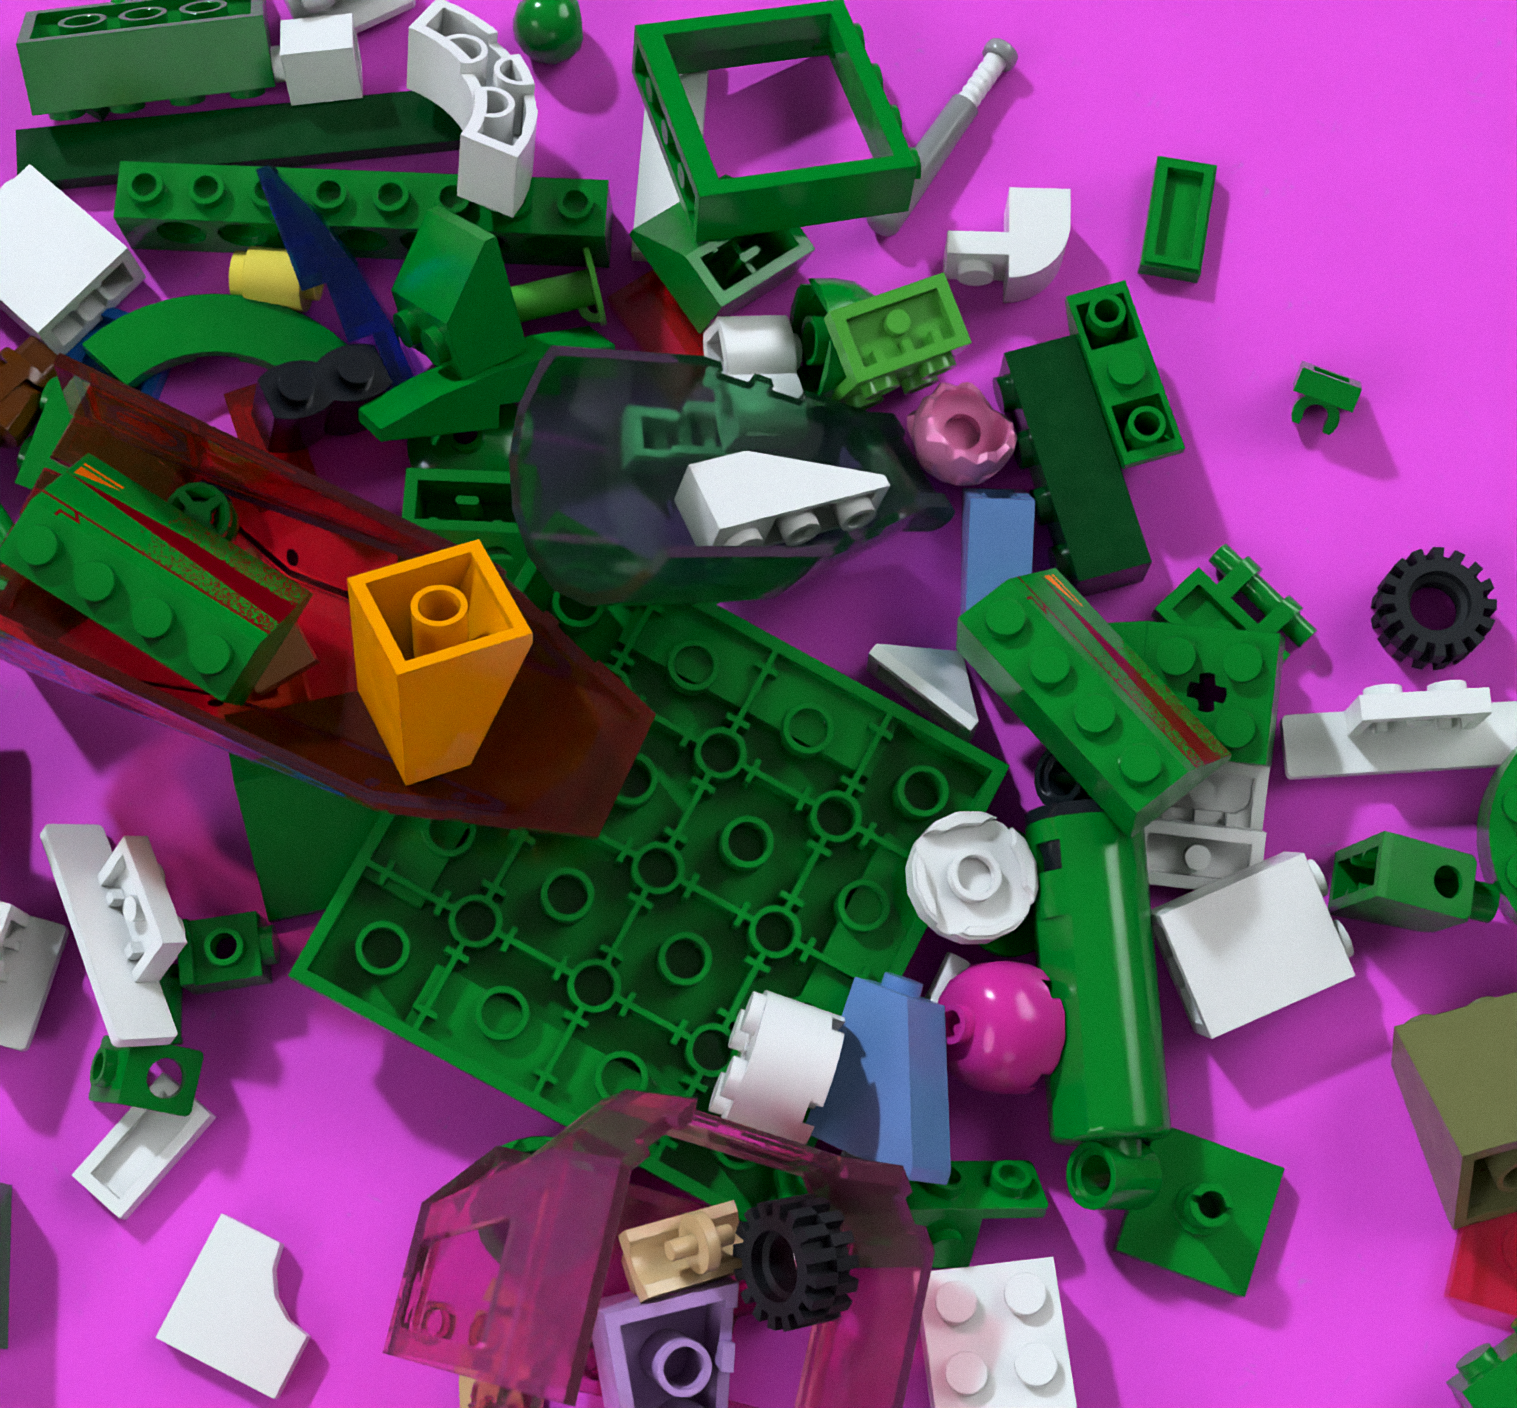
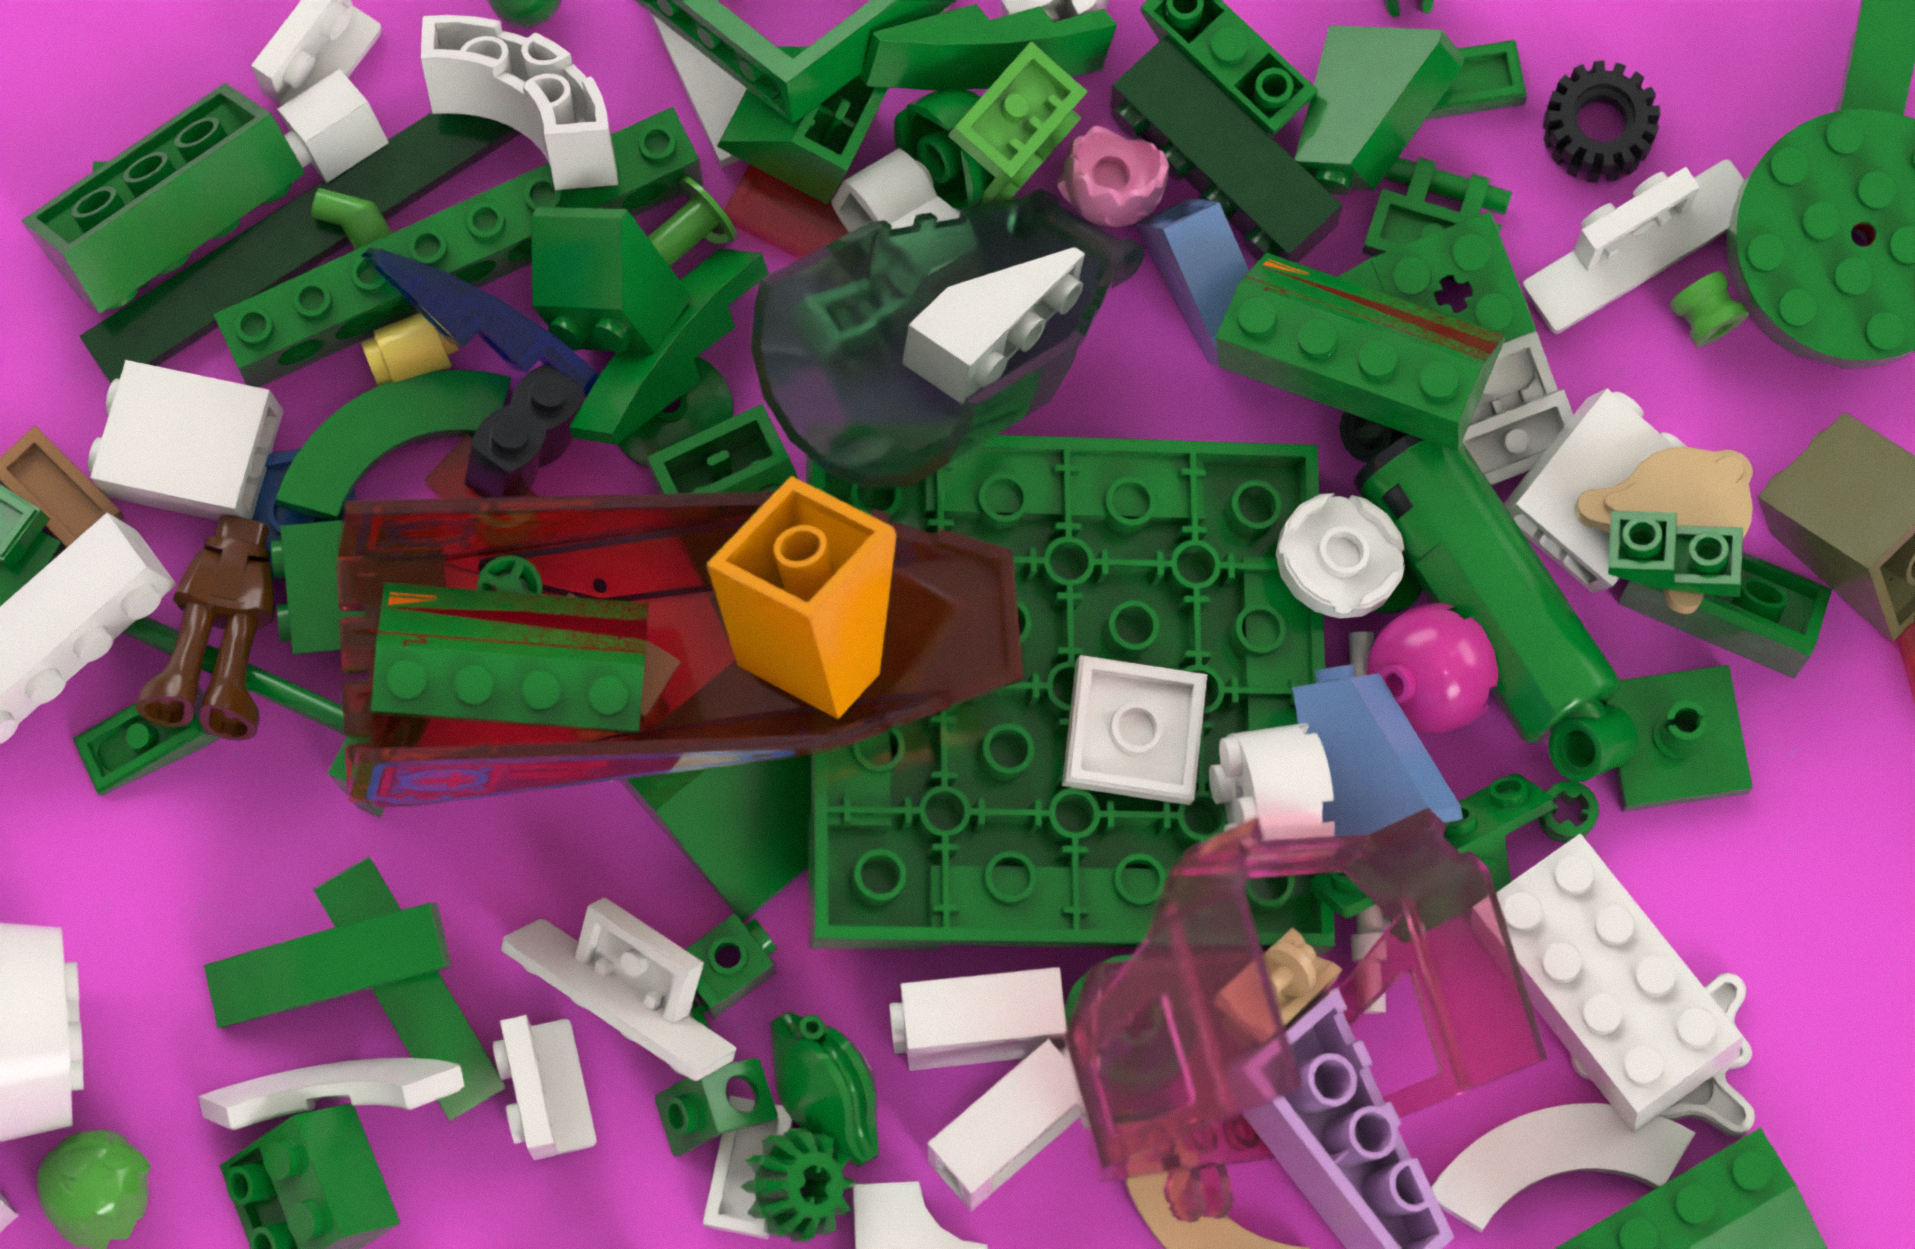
camera: 30 degrees left, 0 degrees up
(148, 1177) = (798, 1185): none -> green gear
(251, 1111) = (826, 1084): none -> green hat
(296, 144) = (357, 216): none -> bright green arm
(351, 1243) = (1006, 1126): none -> white window
(402, 1122) = (978, 1018): none -> white brick
(691, 938) = (1134, 730): none -> white tile
(820, 1283) = (1397, 920): black tyre -> none
(889, 252) = (972, 51): none -> green slope
(931, 682) = (1205, 410): white slope -> none
(1047, 1241) = (1570, 792): none -> green bush
(1230, 484) = (1372, 101): none -> green slope
(1280, 1046) = (1668, 556): none -> green slope
(1308, 1003) = (1688, 481): none -> tan tile
(1319, 1105) = (1769, 623): none -> green slope
(1323, 508) = (1487, 81): none -> green tile
(1409, 885) = (1706, 371): green torso -> none
(1444, 822) = (1709, 309): none -> bright green wheel

